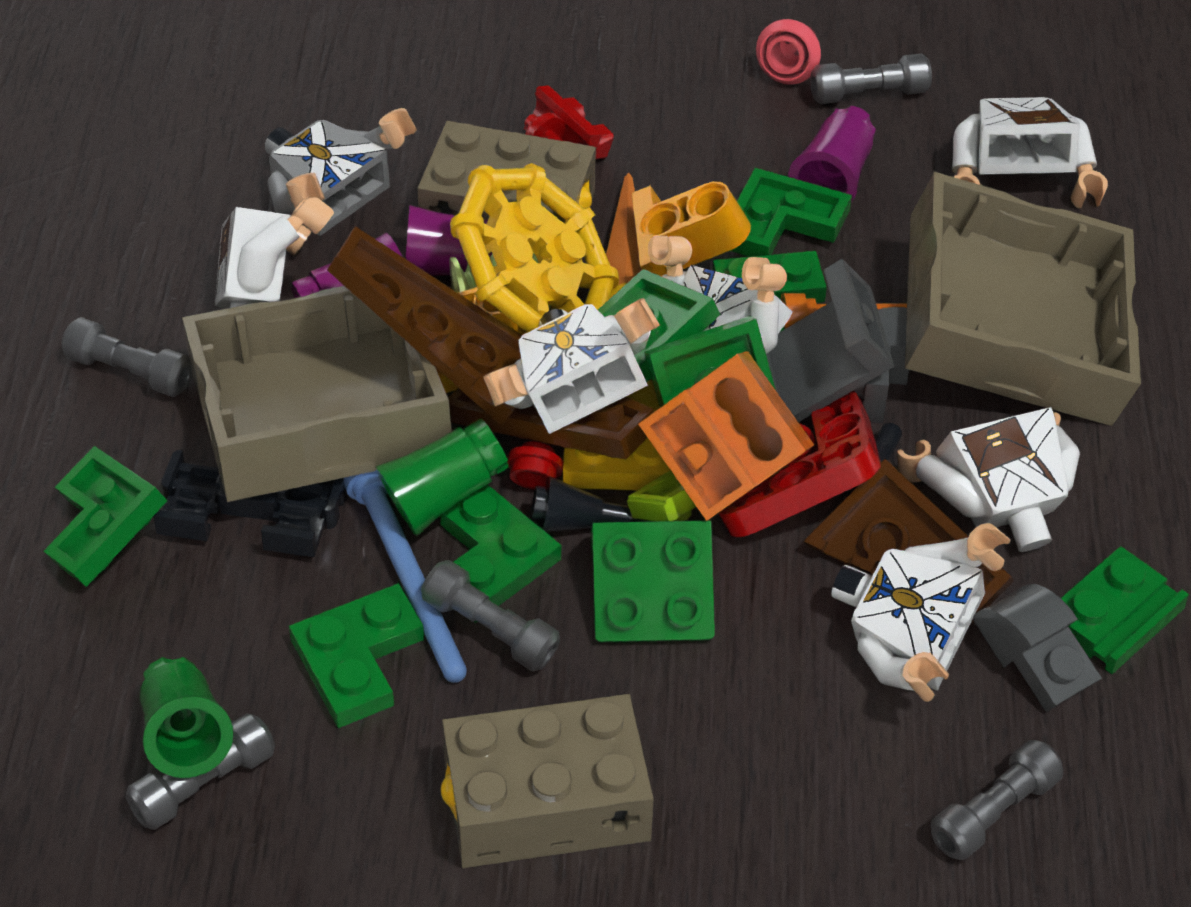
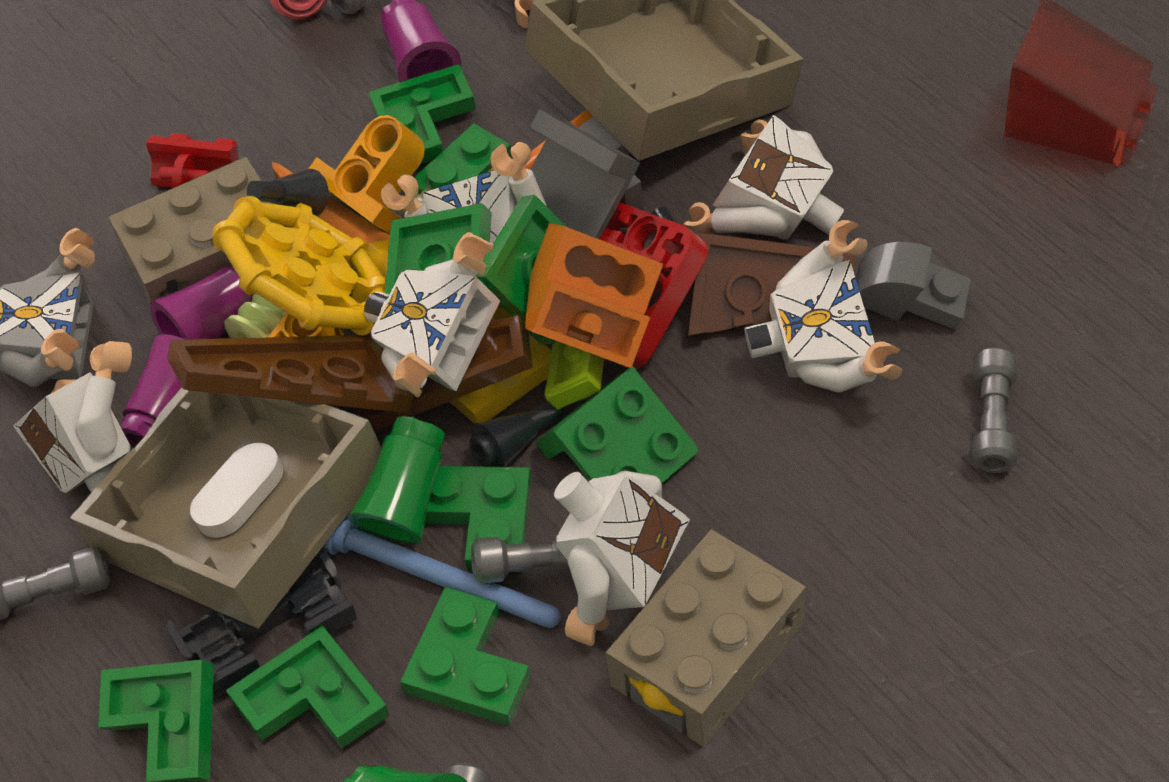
camera: 35 degrees left, 5 degrees up
(228, 570) = (310, 676): none -> green plate
(323, 390) = (236, 490): none -> white tile
(533, 464) = (453, 422): red plate -> none
(539, 639) = (614, 544): none -> white torso
(611, 202) = (300, 187): none -> black cone
(1121, 608) = (931, 217): green plate -> none

